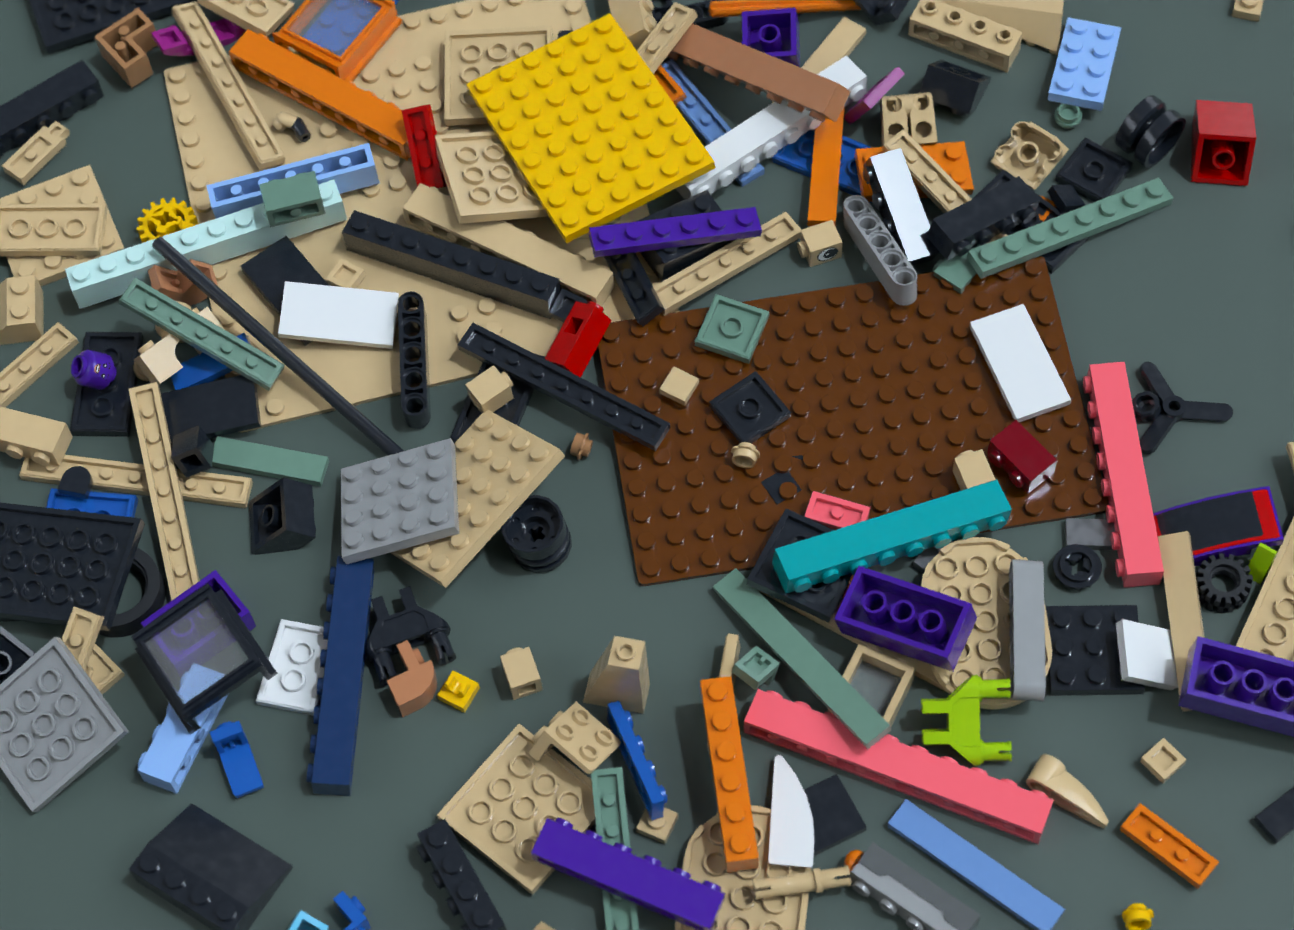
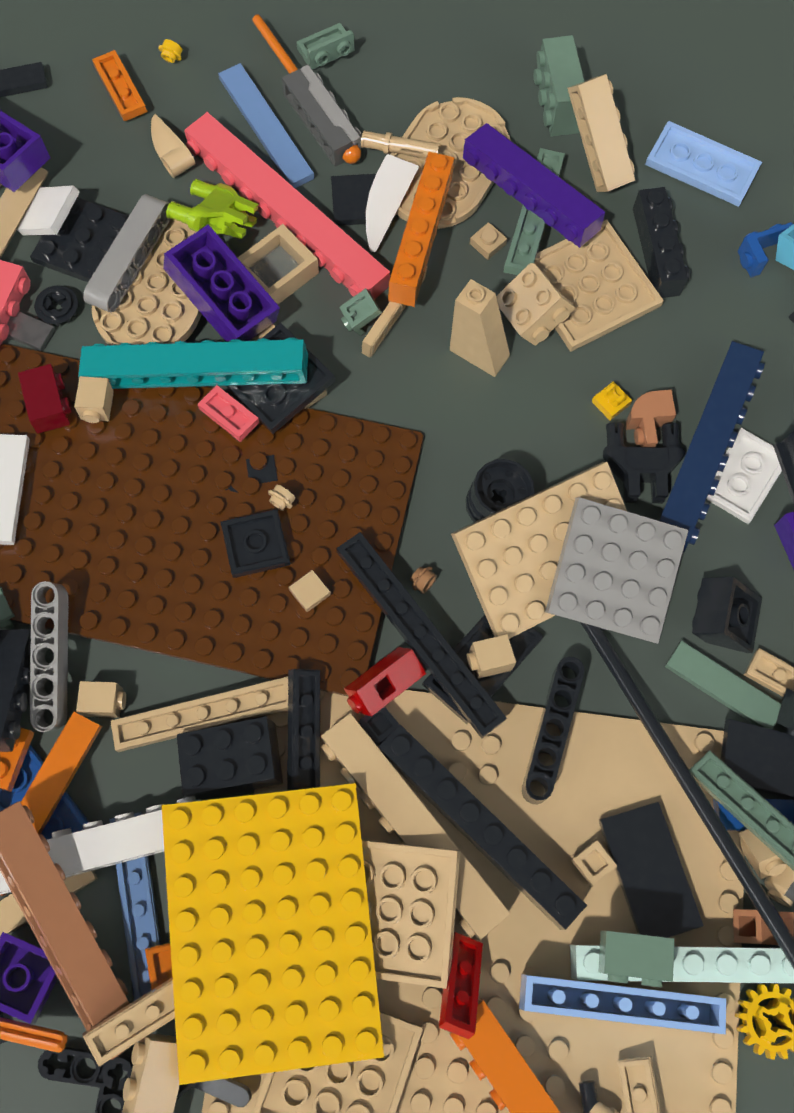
camera: 165 degrees left, 10 degrees up
(338, 315) = (616, 813): white tile -> none
(521, 672) = (555, 389): tan brick -> none
(632, 751) = (486, 265): blue plate -> none
(674, 232) = (241, 742): dark purple plate -> none
(732, 328) = (232, 630): sand green tile -> none
(803, 659) = (320, 304): sand green tile -> none
(1163, 760) = (85, 140): tan plate -> none

